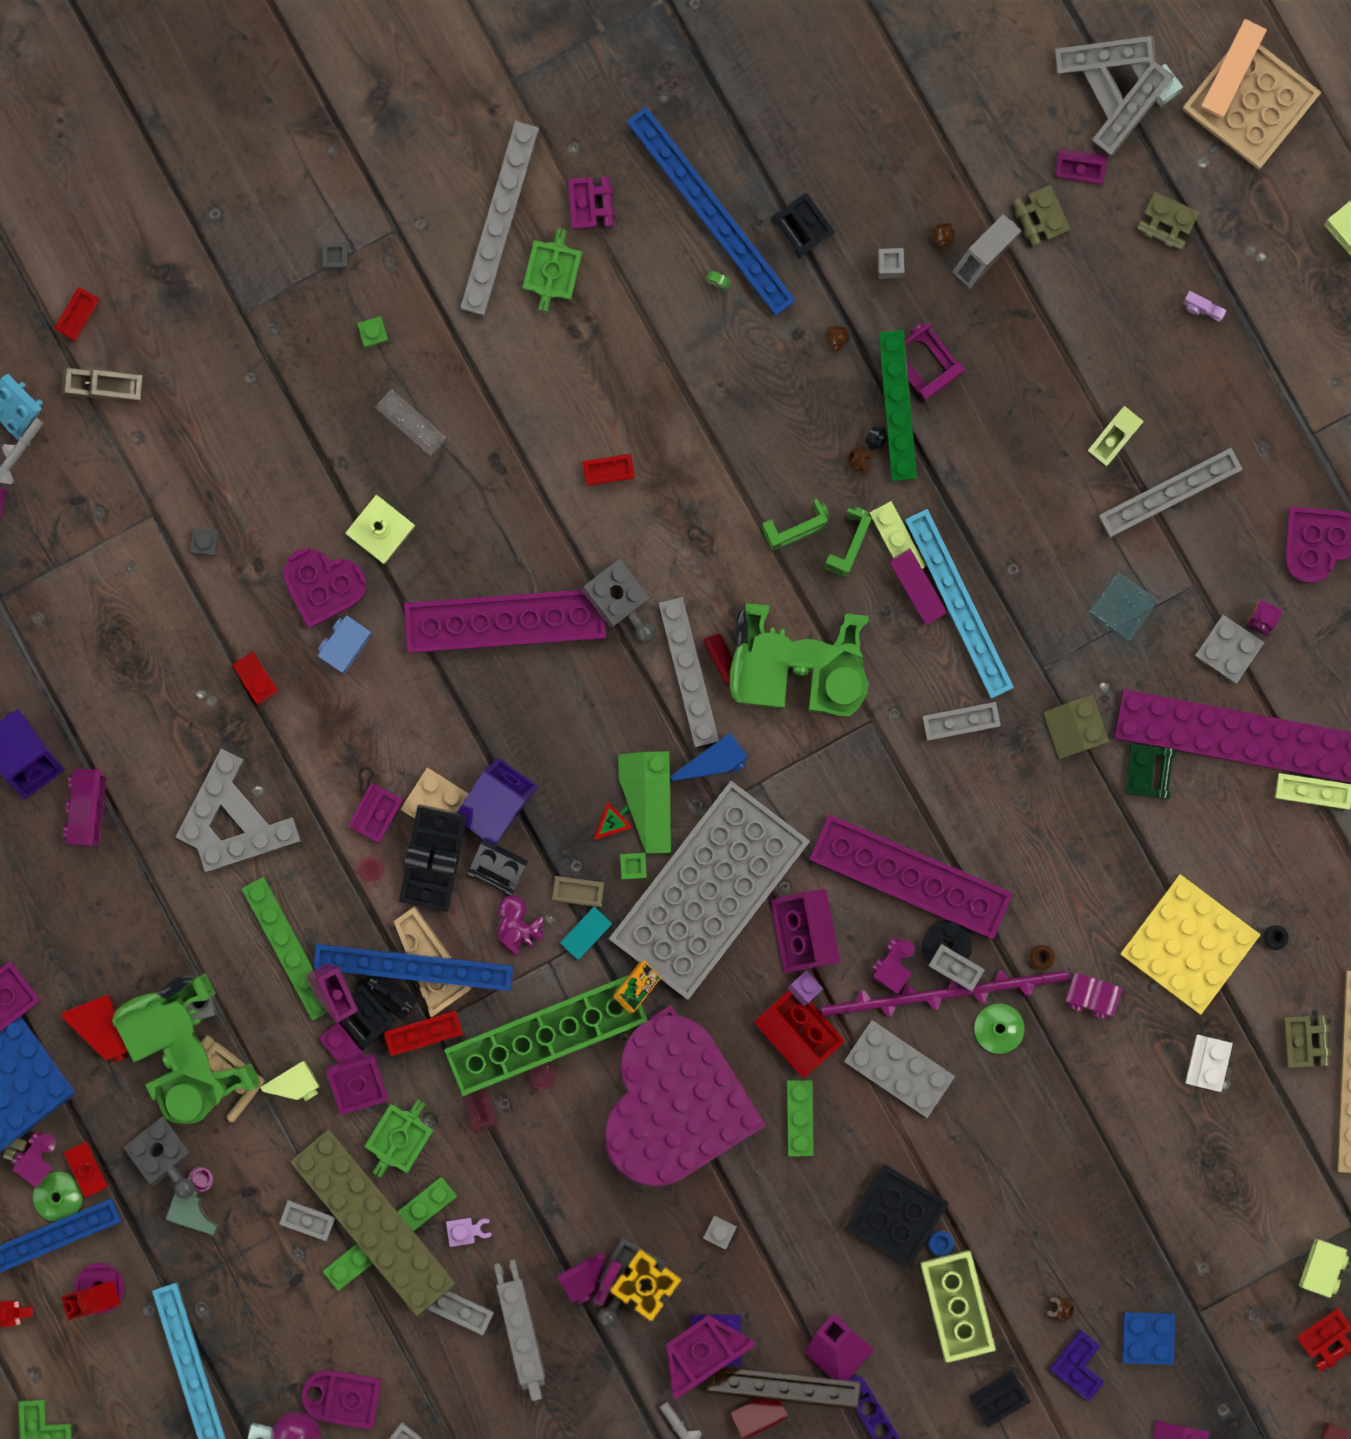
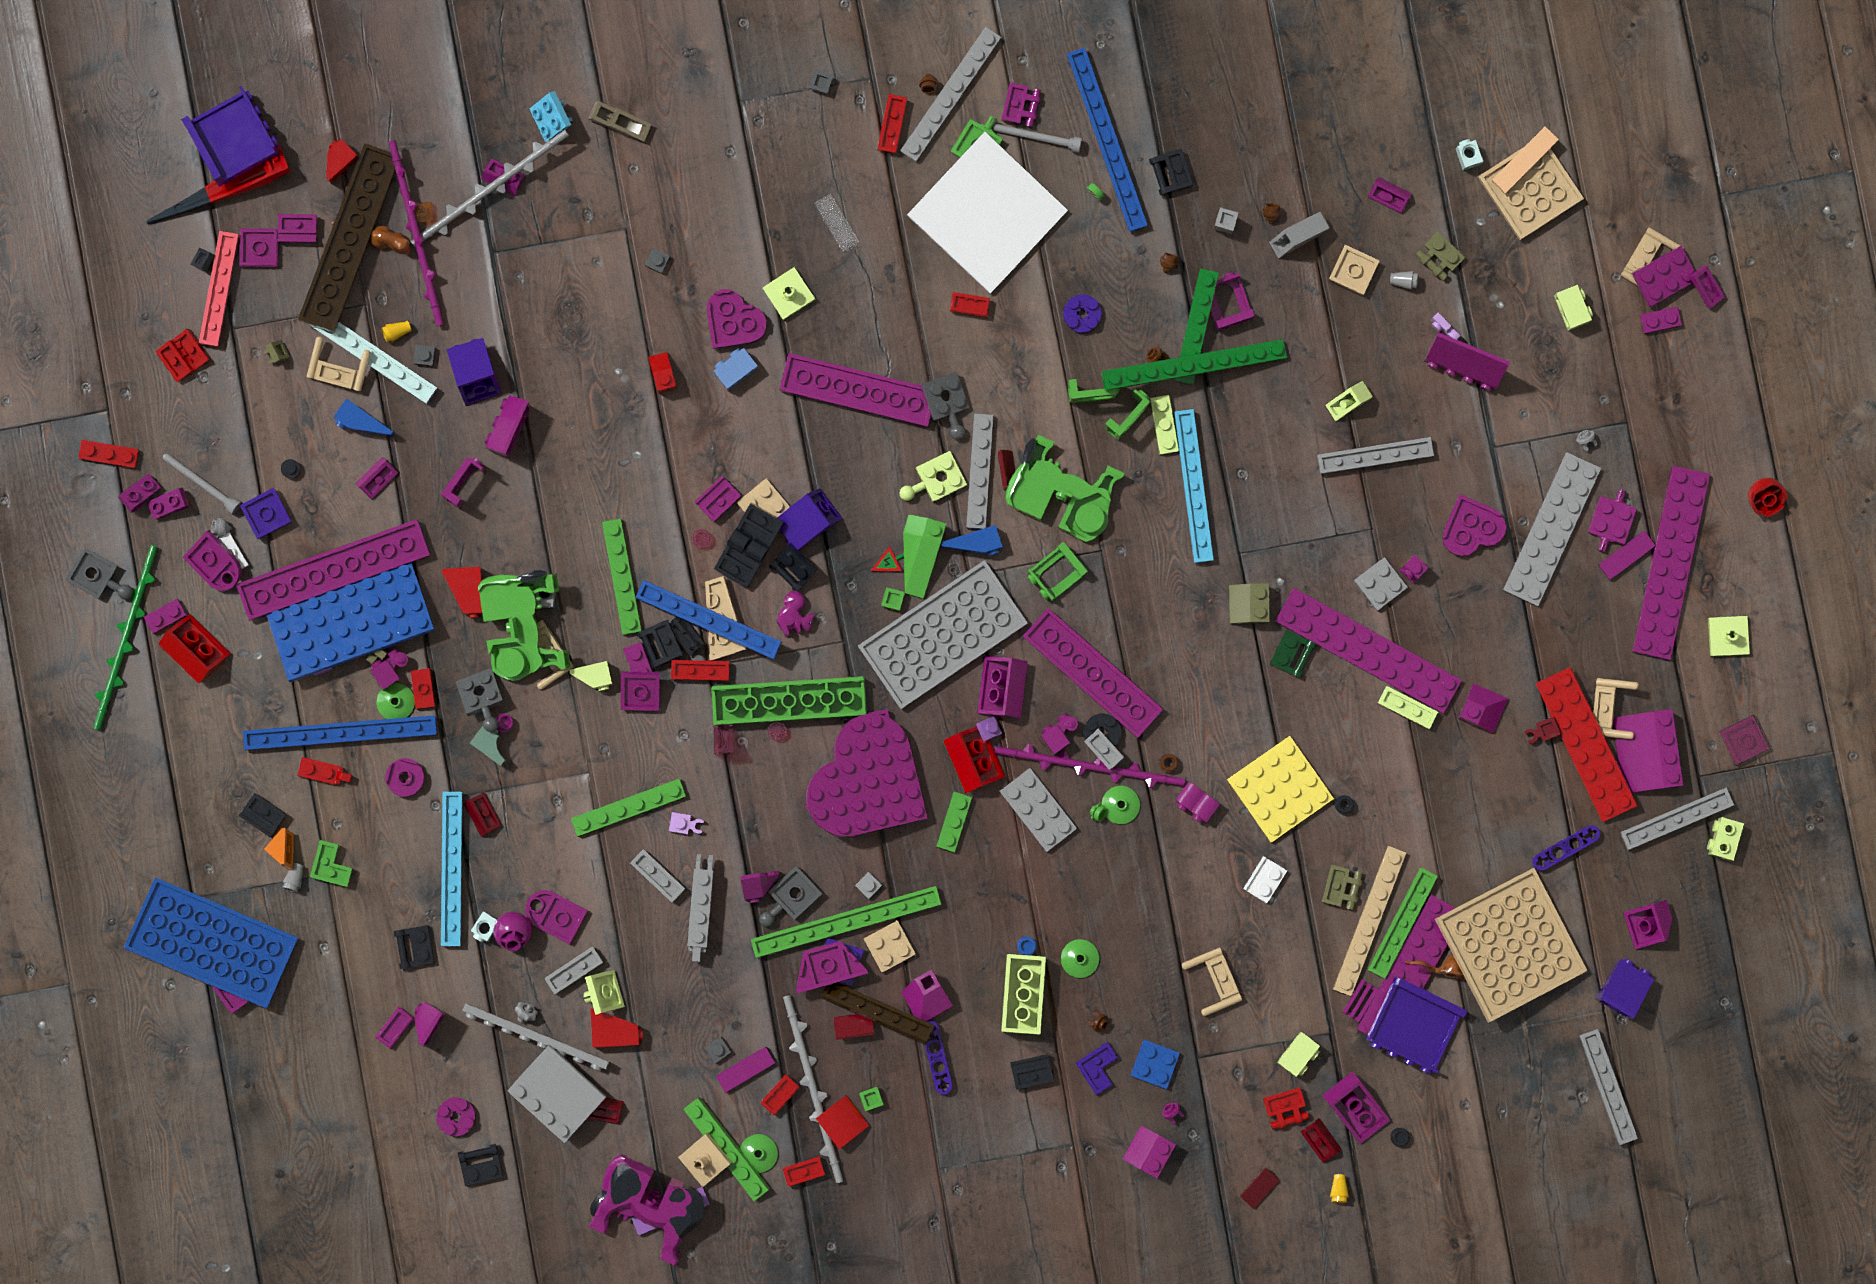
camera: 10 degrees right, 0 degrees up
(45, 895) = (459, 478): none -> magenta panel
(77, 314) = (618, 63): red plate -> none
(90, 1300) = (396, 783): red slope -> none
(211, 1302) = (482, 814): none -> dark red slope
(258, 836) = (610, 446): light grey plate -> none
(307, 1220) = (571, 778): light grey plate -> none
(332, 992) = (644, 617): magenta slope -> none
(372, 332) = (830, 147): bright green plate -> none
(373, 1222) = (619, 795): olive plate -> none
(399, 1138) = (657, 740): bright green plate -> none
(439, 278) = (892, 124): none -> red plate
(468, 214) = (928, 84): none -> reddish brown plate
(578, 891) = (846, 604): dark tan tile -> none
(586, 933) = (842, 636): teal tile -> none
(592, 349) = (987, 212): none -> white tile
(607, 1282) = (775, 893): magenta tile -> none
(629, 1287) = (790, 901): yellow brick -> none
(637, 986) = (866, 686): tile -> none
(640, 711) = (935, 488): none -> yellowish green plate
(670, 230) = (1072, 143): none -> light grey piece
(707, 1287) = (845, 921): none -> bright green plate
(763, 442) = (1075, 305): none -> dark purple plate
(771, 1300) = (889, 946): none -> tan plate
(799, 773) = (1036, 571): none -> bright green panel
(876, 437) = (1173, 345): black plate -> none
(897, 1215) = (1001, 915): black plate -> none
(910, 454) = (1193, 365): none -> green plate
(917, 586) = (1167, 463): magenta tile -> none
(961, 721) = (1166, 572): light grey plate -> none
(975, 1048) = (1098, 812): none -> bright green plate
(1001, 1228) = (1069, 958): none -> bright green dish
(1048, 213) = (1354, 222): olive plate -> none
(1068, 272) = (1354, 270): none -> tan plate
(1121, 112) = (1434, 165): light grey plate -> none
(1124, 606) = (1313, 527): clear light blue plate -> none
(1134, 264) = (1405, 279): none -> light grey cone
(1188, 1389) = (1170, 1111): none -> magenta plate
(1196, 1205) = (1221, 978): none -> tan plate
(1245, 340) = (1466, 362): none -> magenta slope

